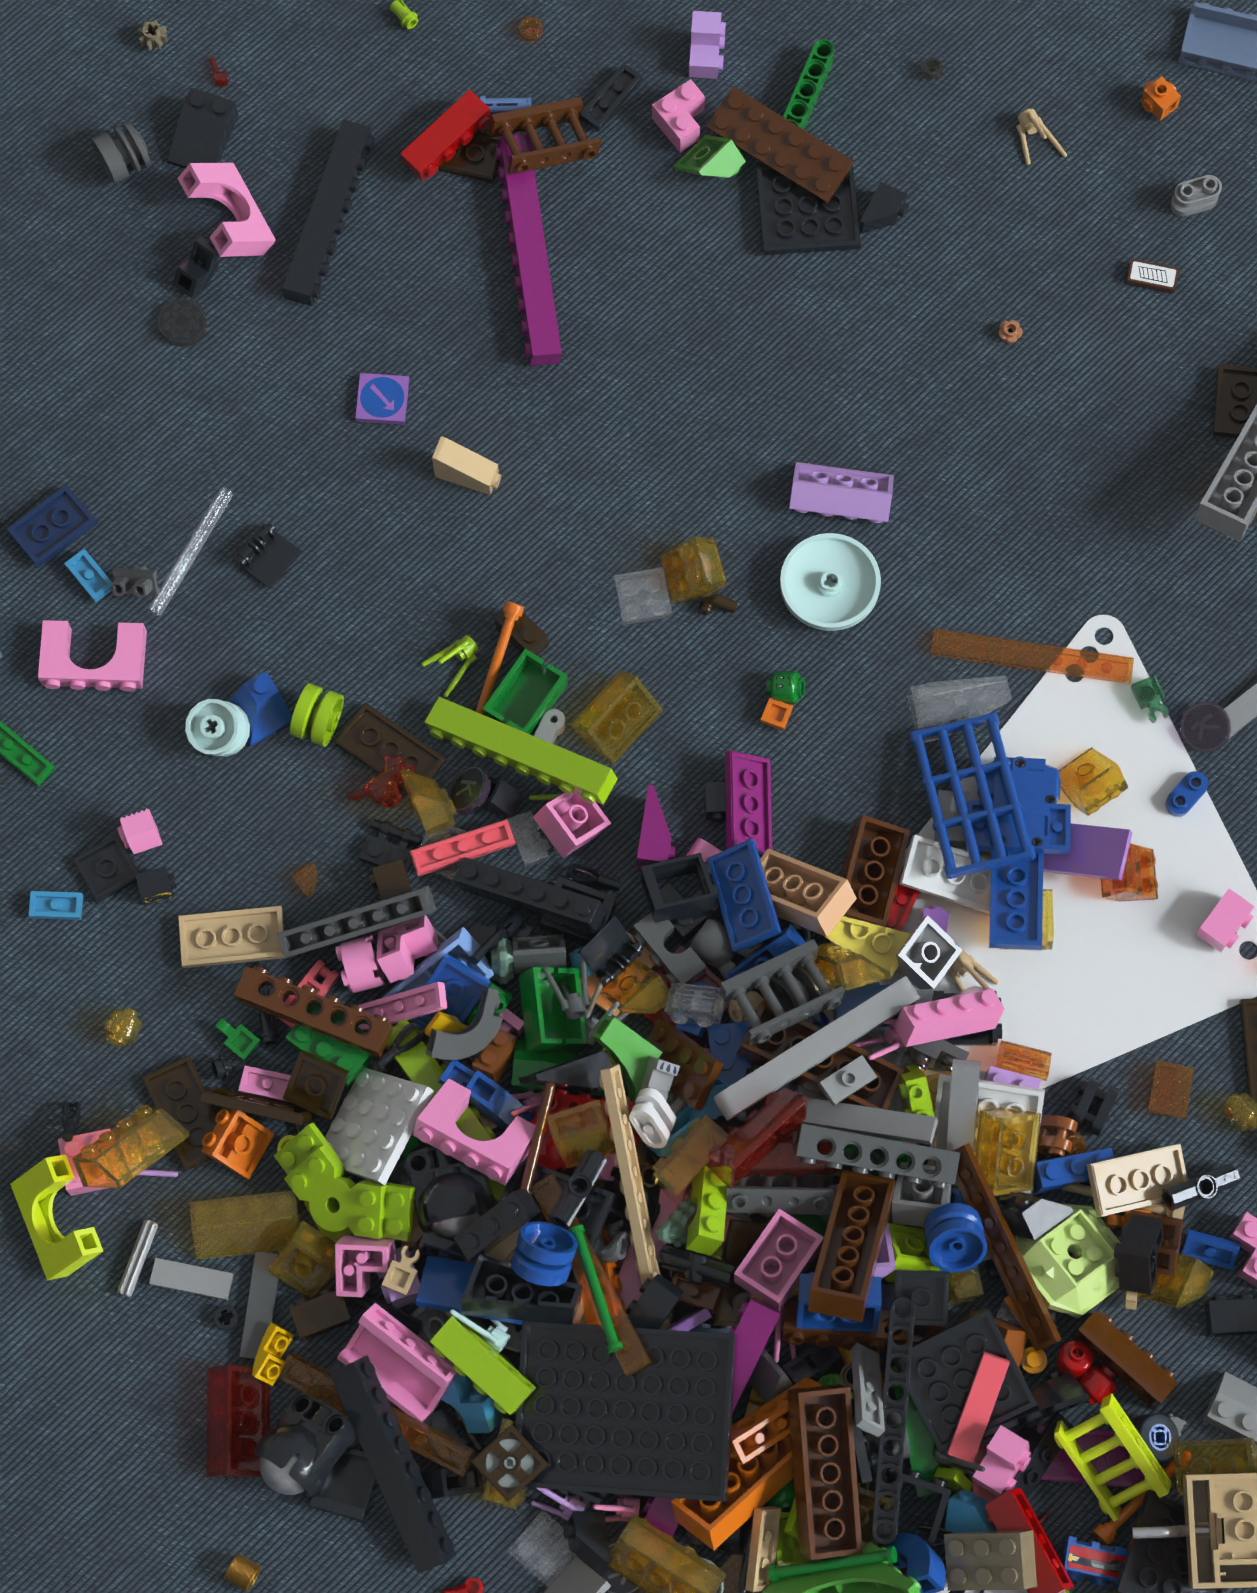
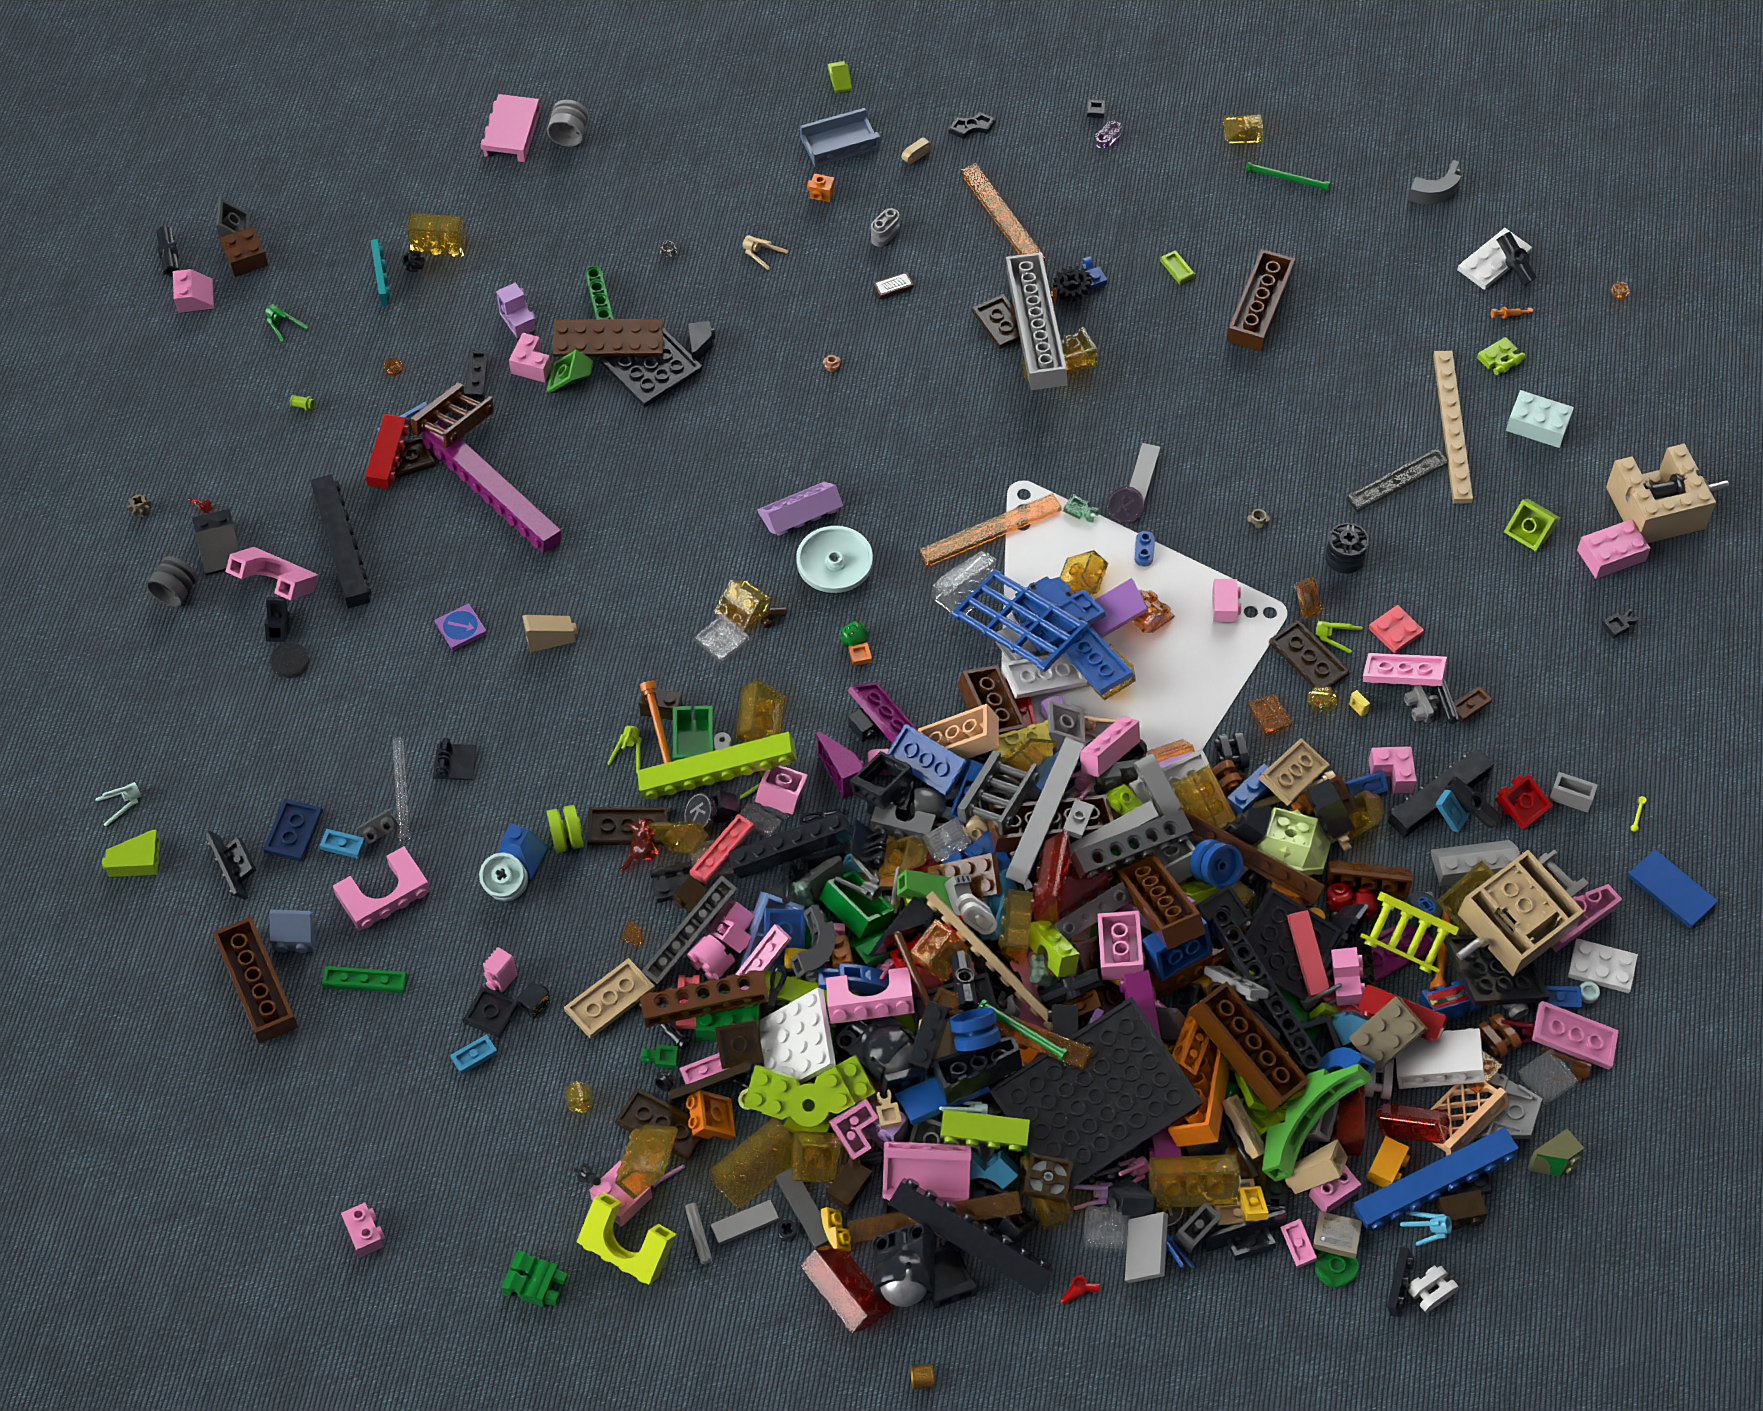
camera: 35 degrees left, 15 degrees down
(775, 1572) = (1298, 1097): green bar -> none
(1212, 1183) = (1332, 753): black piece -> none

